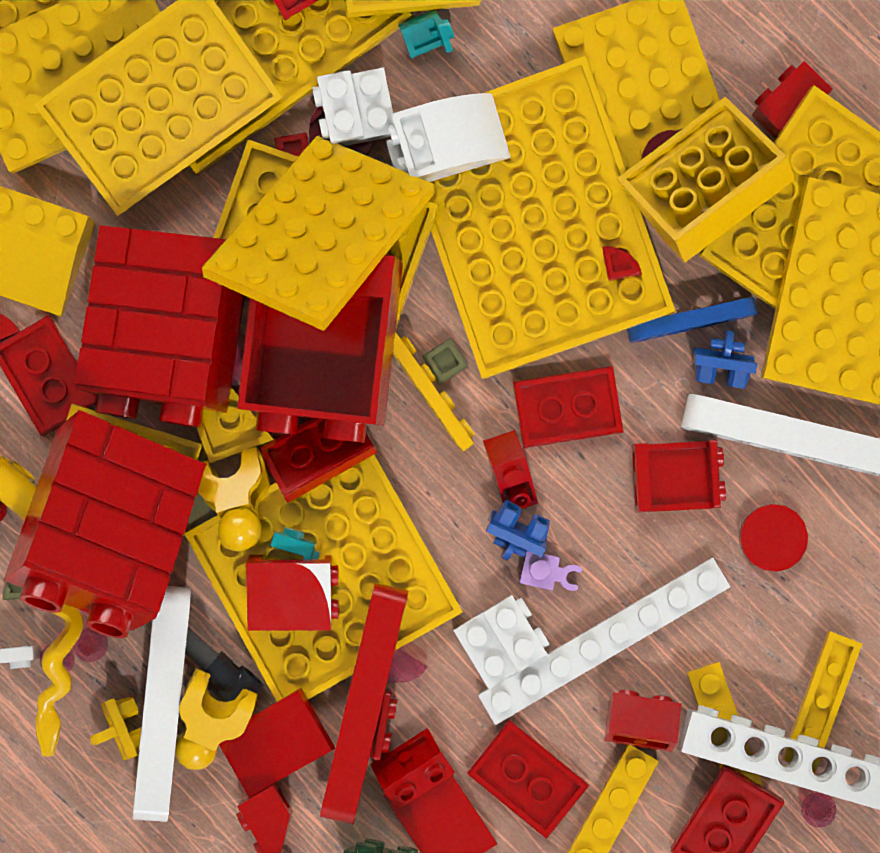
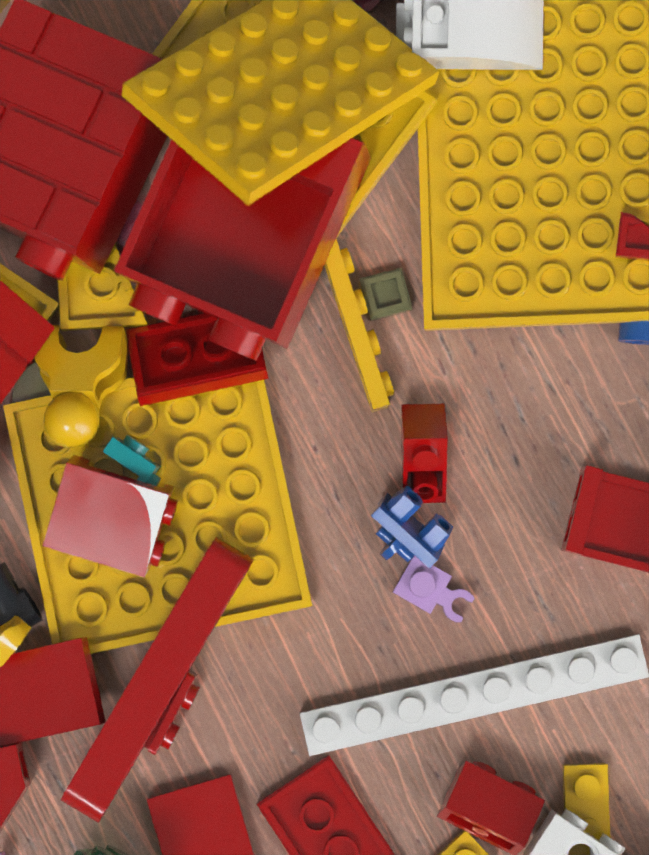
camera: 15 degrees right, 0 degrees up
(405, 668) = (221, 652): clear pink tile -> none
(412, 769) = (191, 778): red bracket -> none
(502, 640) = (349, 656): white plate -> none
(568, 407) = (518, 396): red tile -> none

